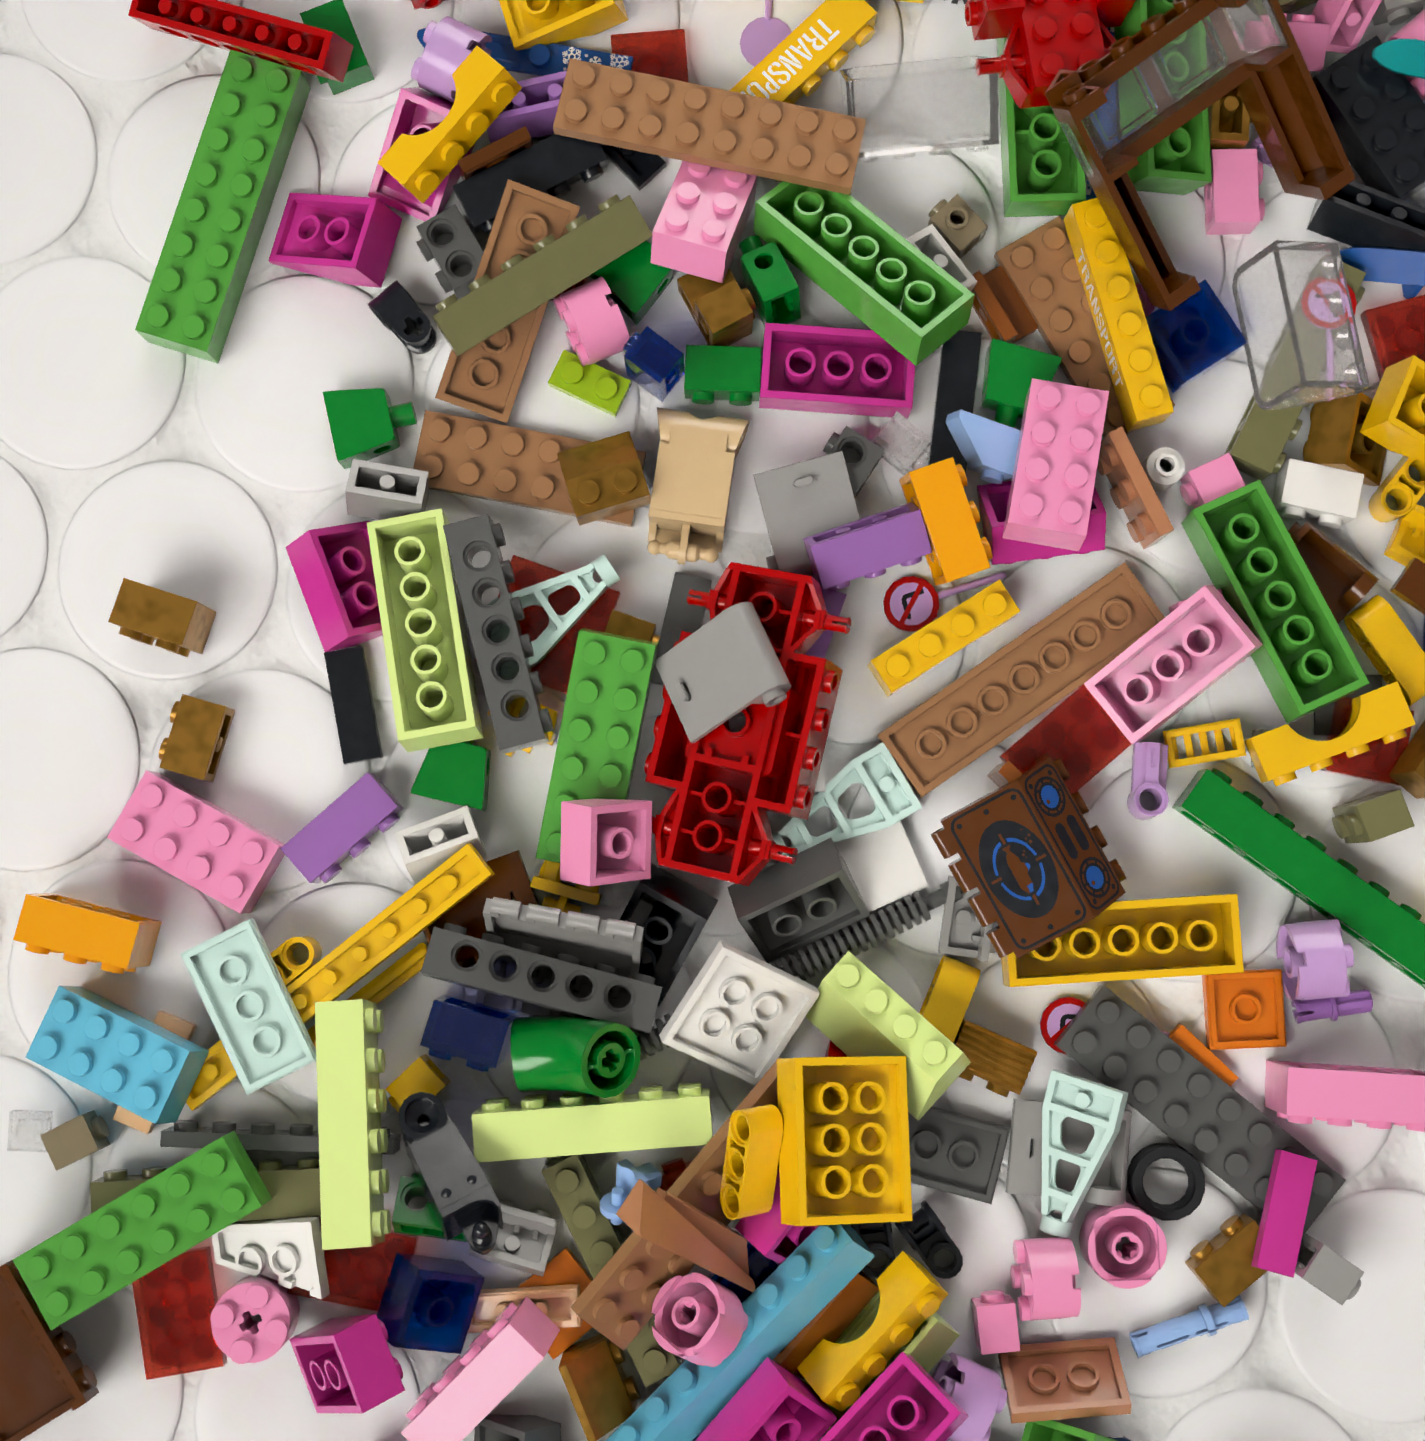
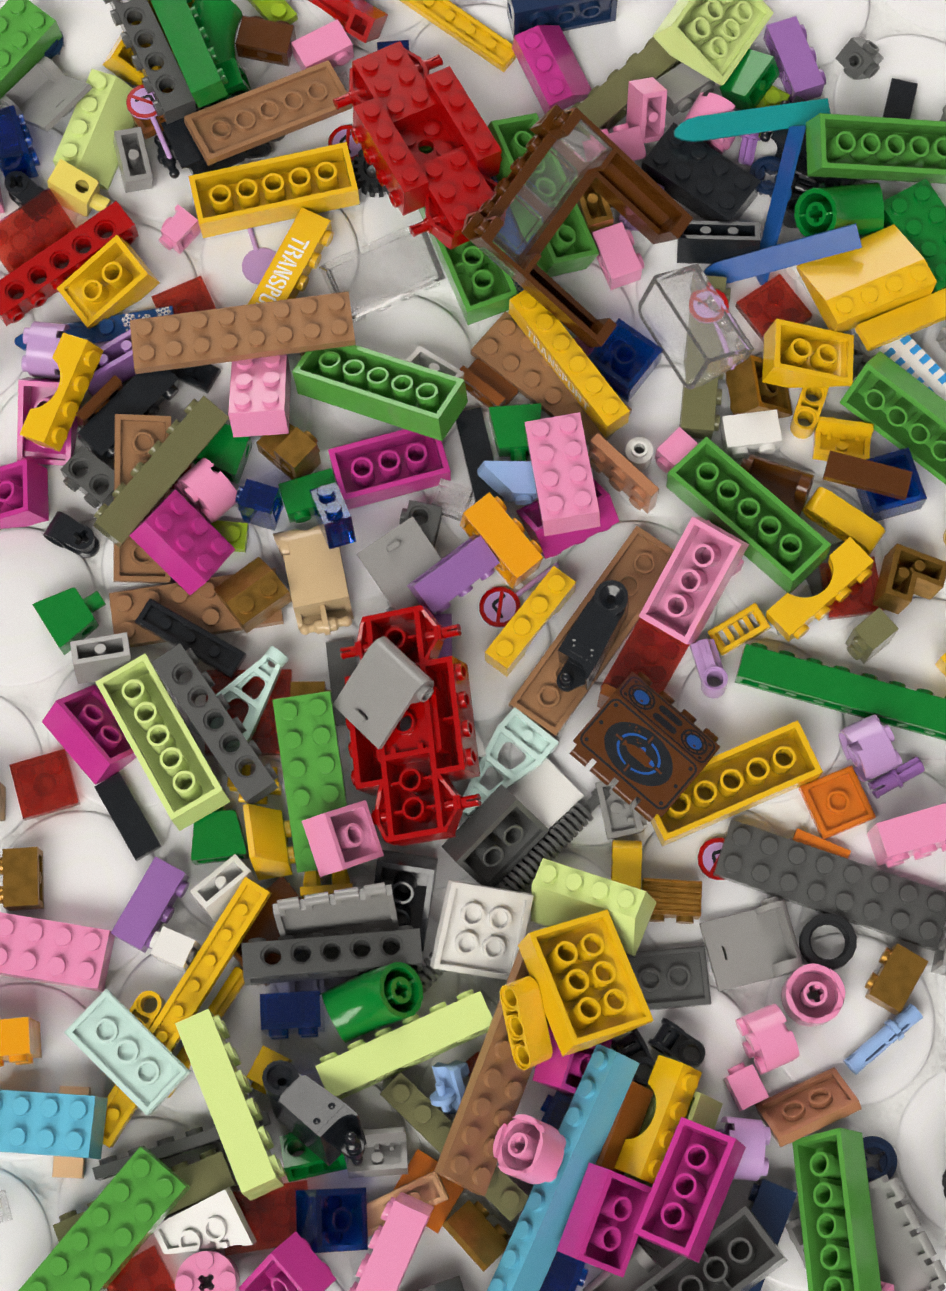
camera: 20 degrees left, 10 degrees down
(76, 1139) = (30, 1200): dark tan brick -> none
(264, 627) = (44, 784): none -> clear red plate
(351, 898) = (174, 948): none -> white brick
(507, 507) = (177, 629): none -> black tile
(513, 804) = (268, 842): none -> yellow slope
(537, 380) = (182, 542): none -> dark pink brick
(687, 1233) = (499, 1086): nougat wedge -> none
(740, 414) = (332, 515): none -> clear blue brick
(769, 281) = (321, 422): green torso -> none
(958, 225) = (438, 340): dark tan brick -> none
(1016, 693) = (592, 636): none -> black piece
(1088, 1102) = (746, 903): light aqua plate -> none
(1284, 1213) = (916, 930): dark pink tile -> none

